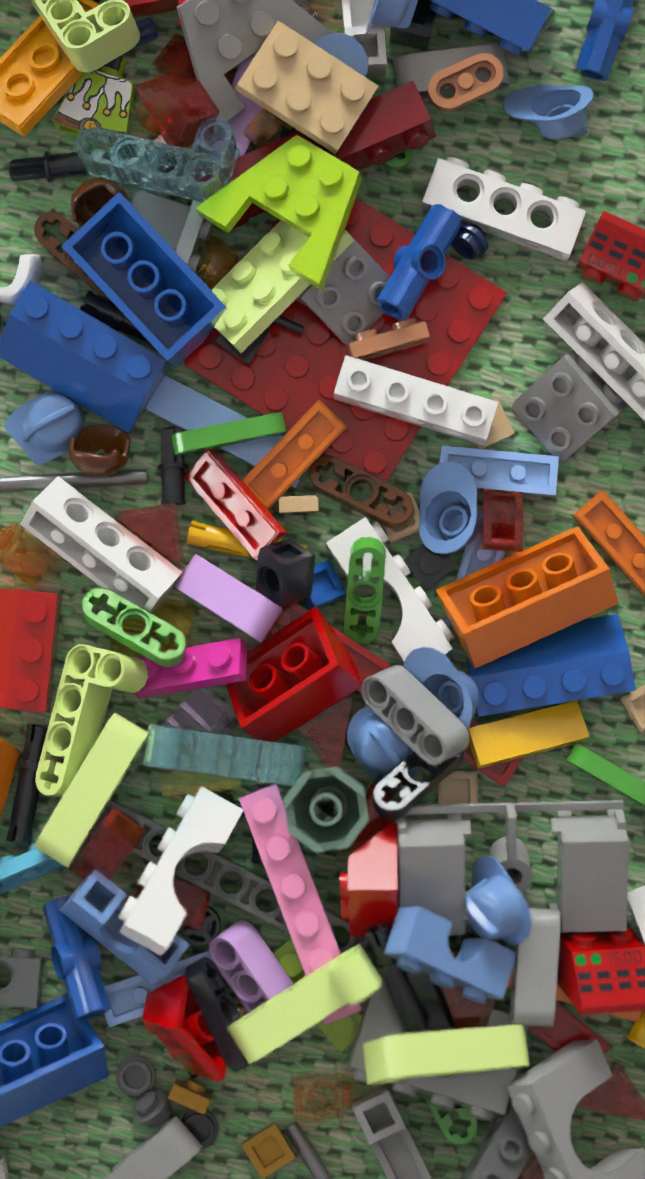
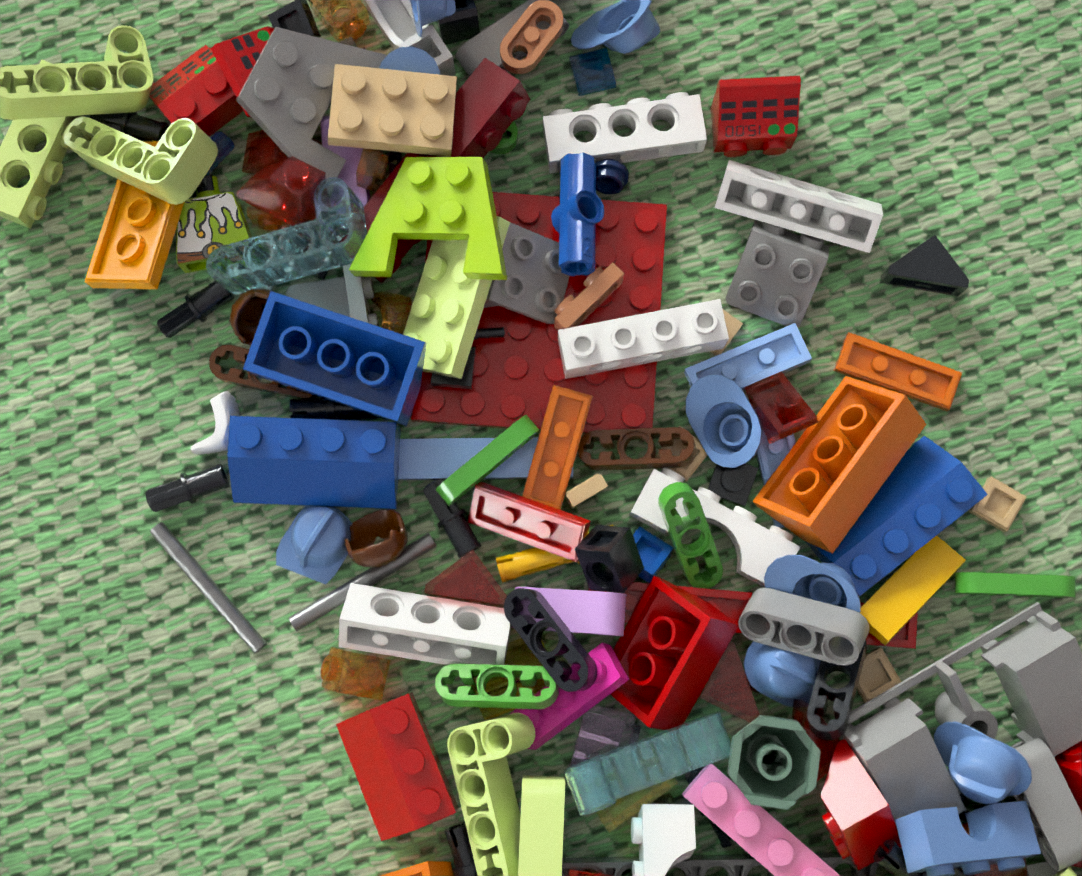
camera: 30 degrees left, 5 degrees down
(210, 624) = (532, 633): none -> black beam
(508, 137) = (592, 72): none -> tile

